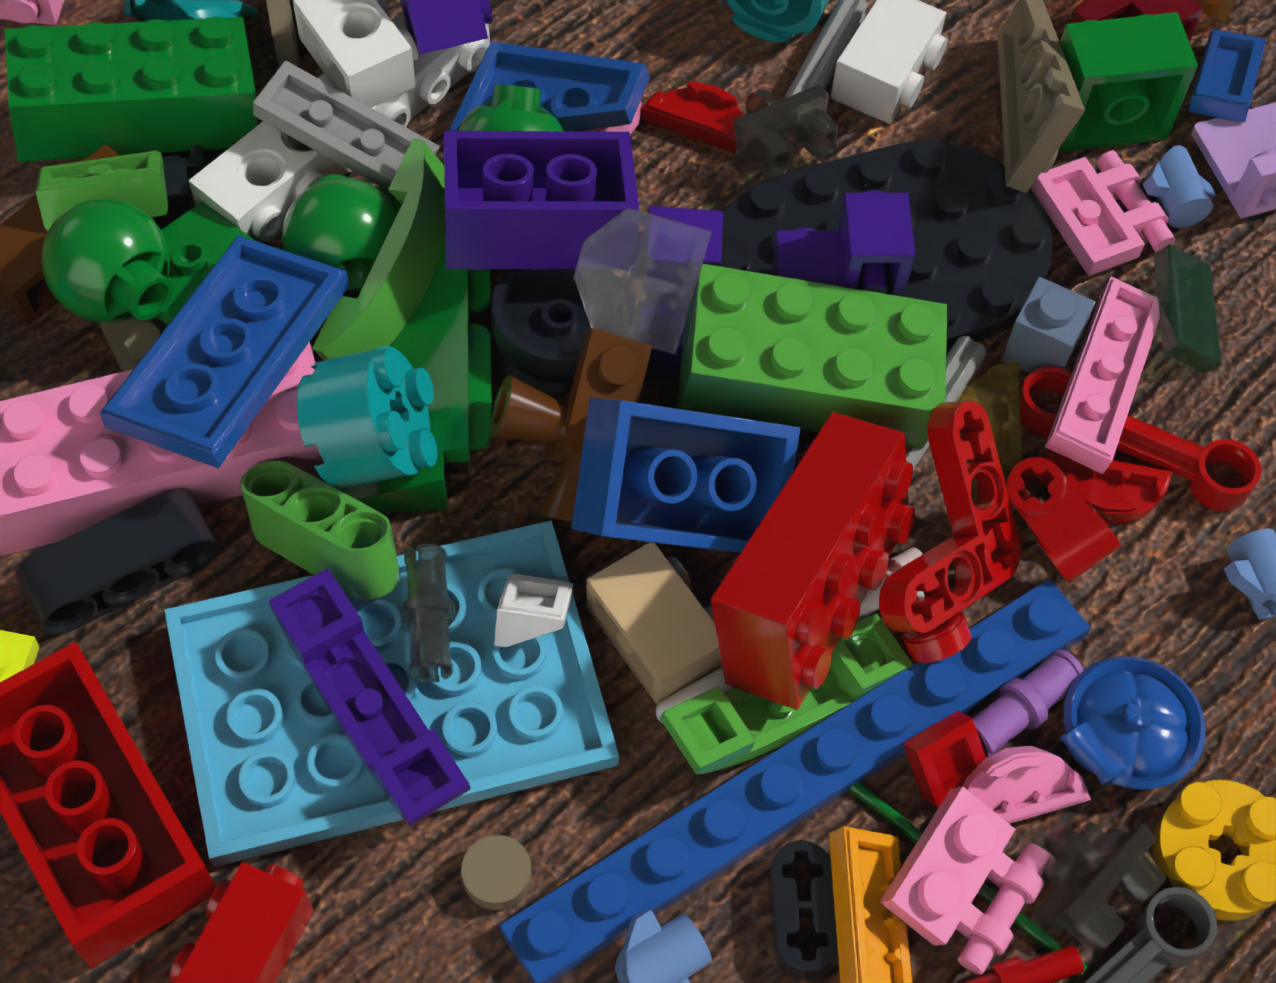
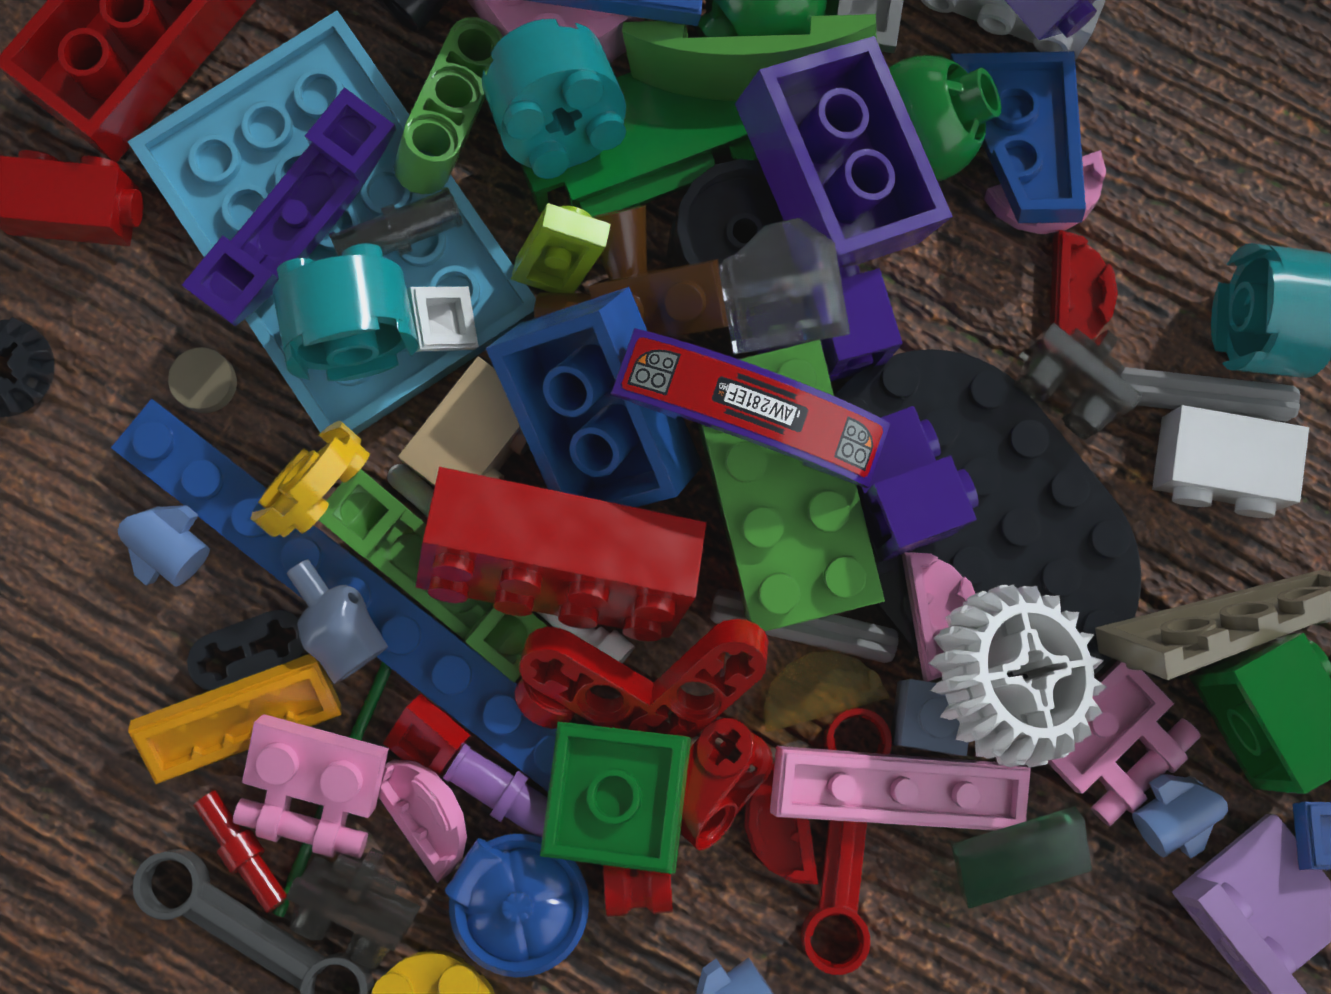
camera: 70 degrees right, 20 degrees up
(506, 669) = (343, 314): none -> teal brick
(519, 462) = (560, 249): none -> lime plate
(663, 762) = (297, 492): none -> yellow plate
(741, 324) = (751, 405): none -> slope
(812, 798) = (335, 624): none -> sand blue piece
(966, 289) = (933, 594): none -> bright pink tile
(1039, 235) = (1016, 716): none -> white gear
(1057, 592) = (616, 797): none -> green plate
(1135, 613) = (636, 889): none -> red wheel

